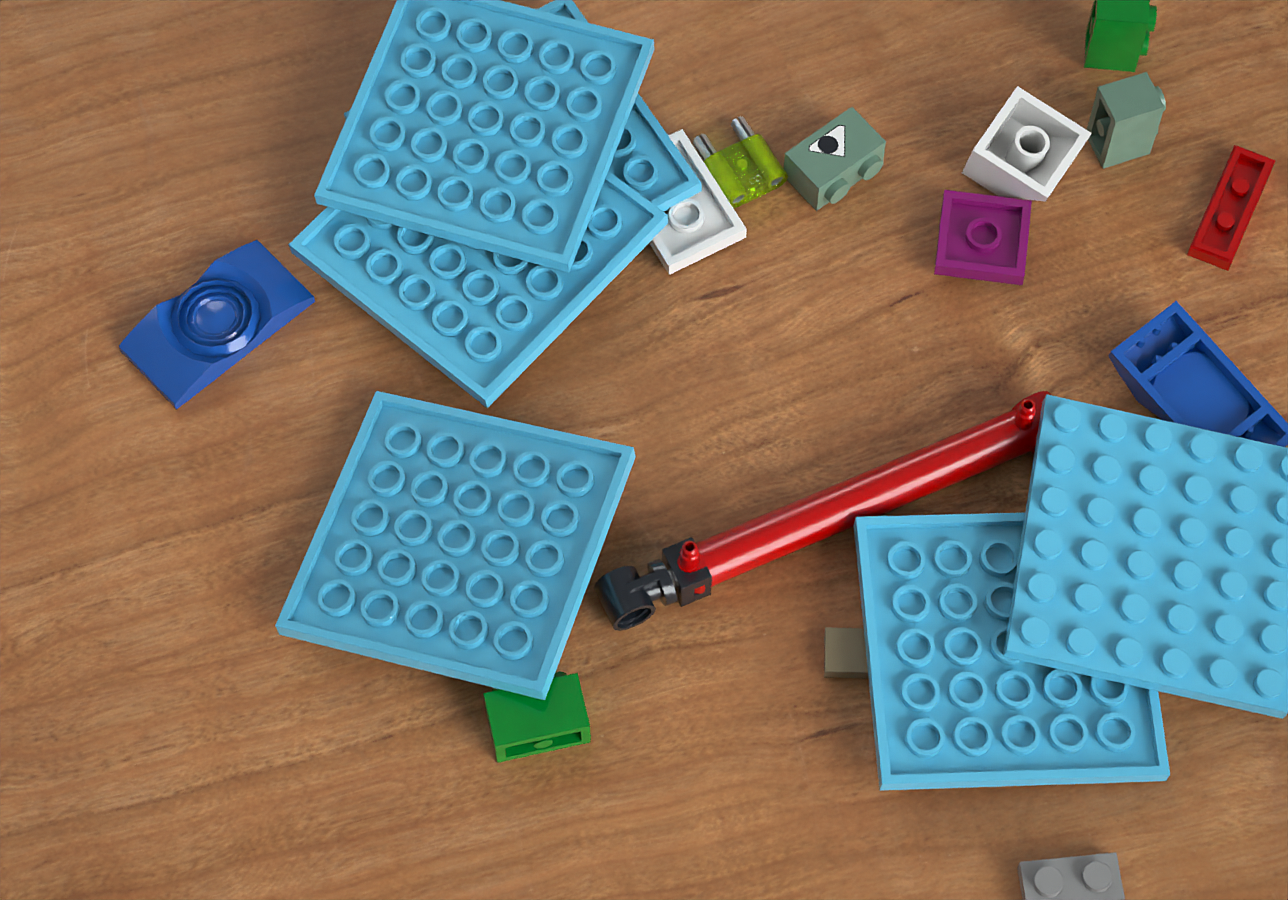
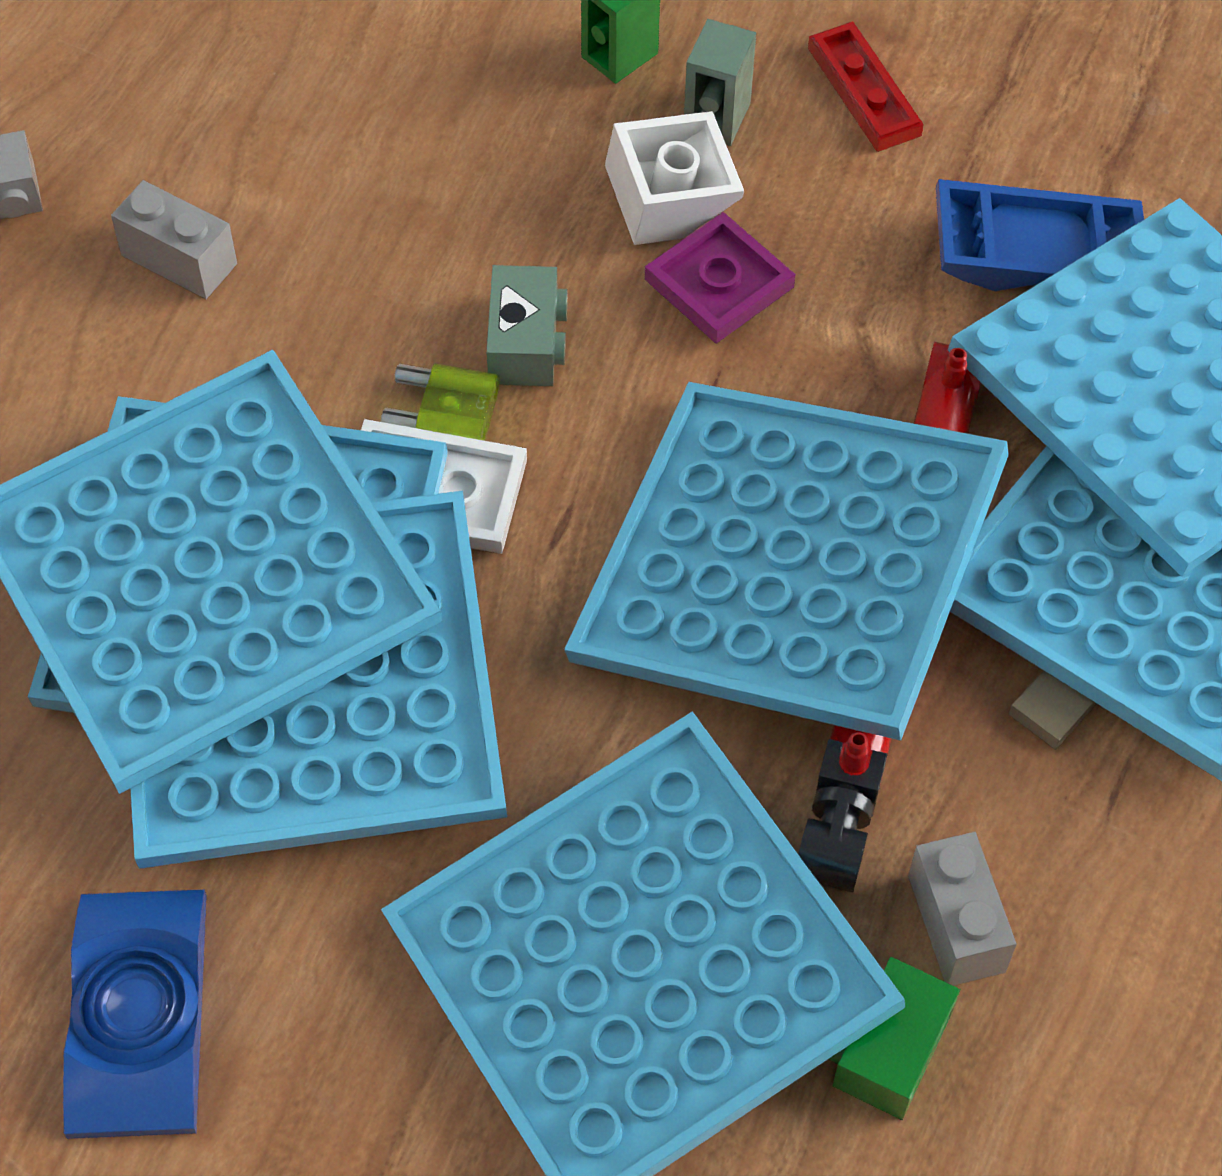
camera: 50 degrees left, 5 degrees down
(651, 693) = (961, 909): none -> light grey brick
(804, 425) = (791, 558): none -> medium azure plate

